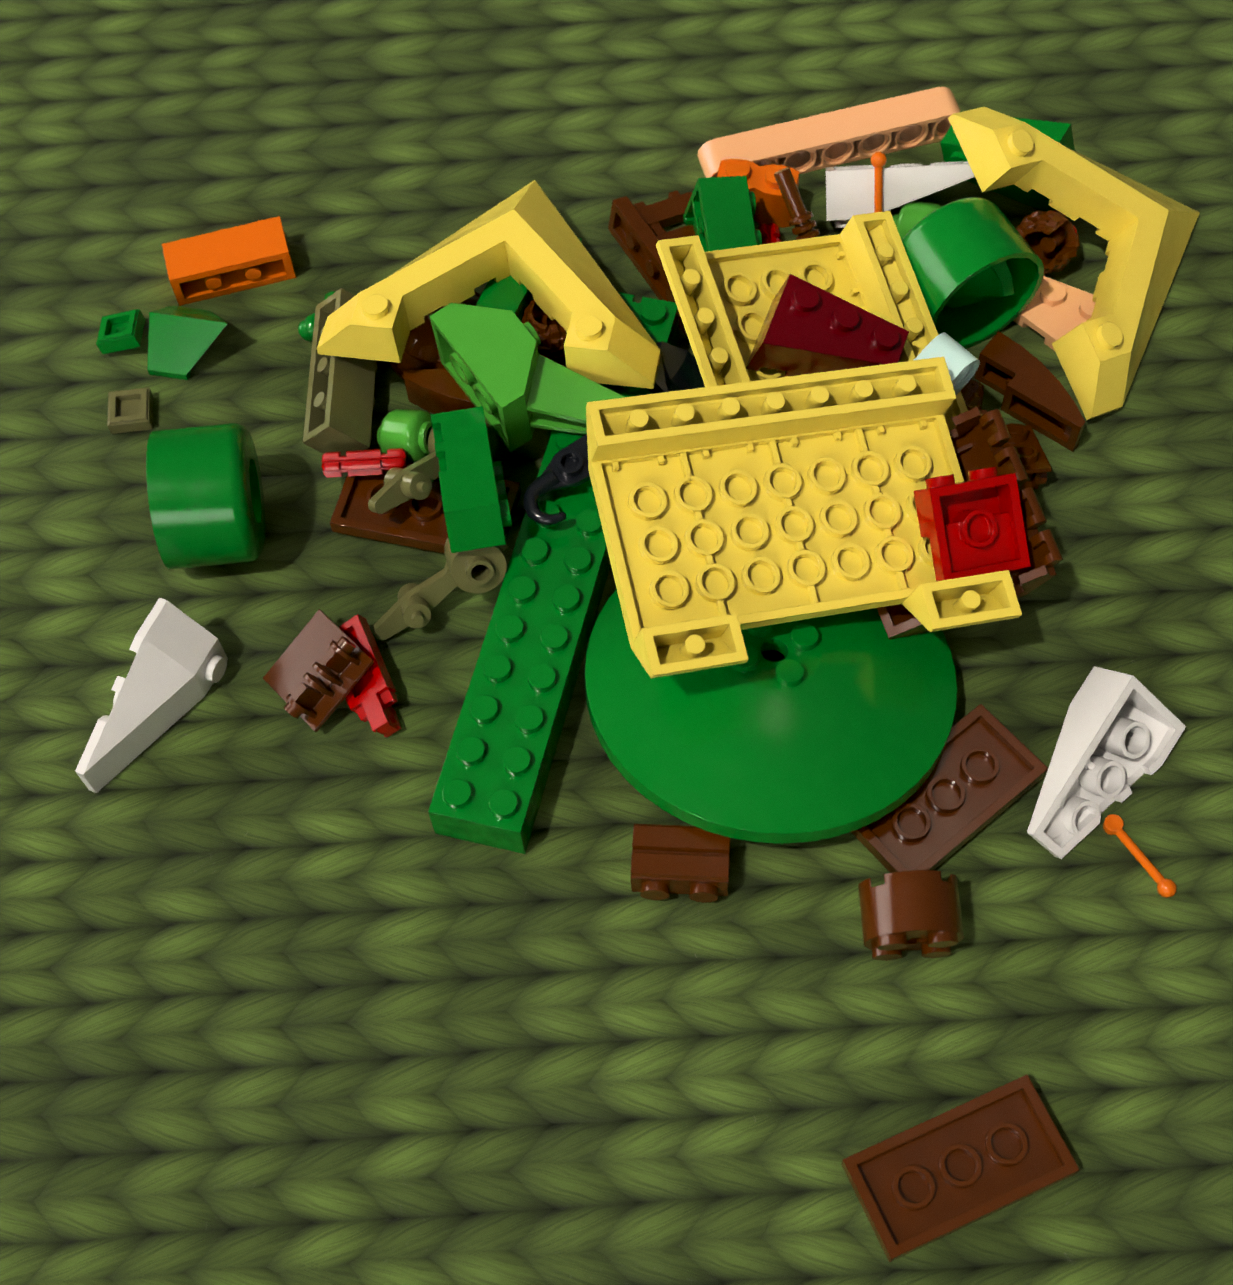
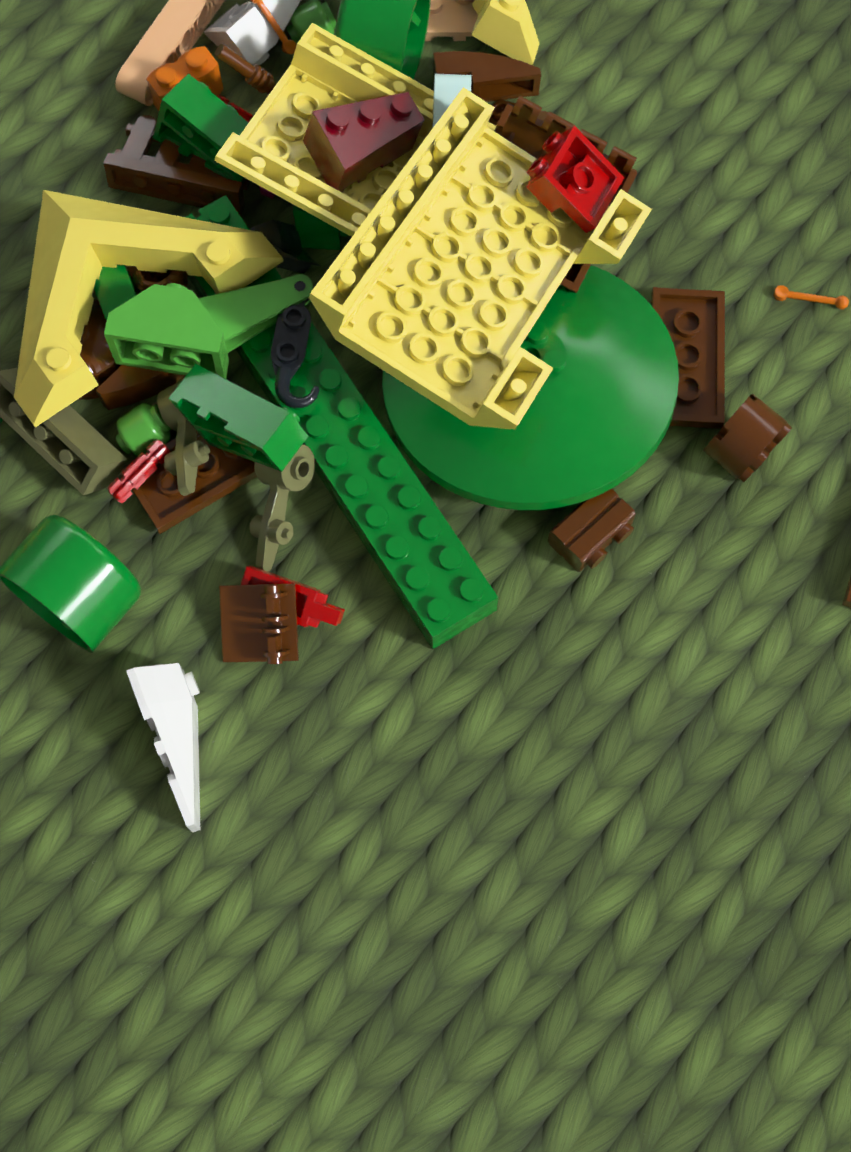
camera: 50 degrees left, 10 degrees up
(1105, 745) = (735, 241): white wedge -> none

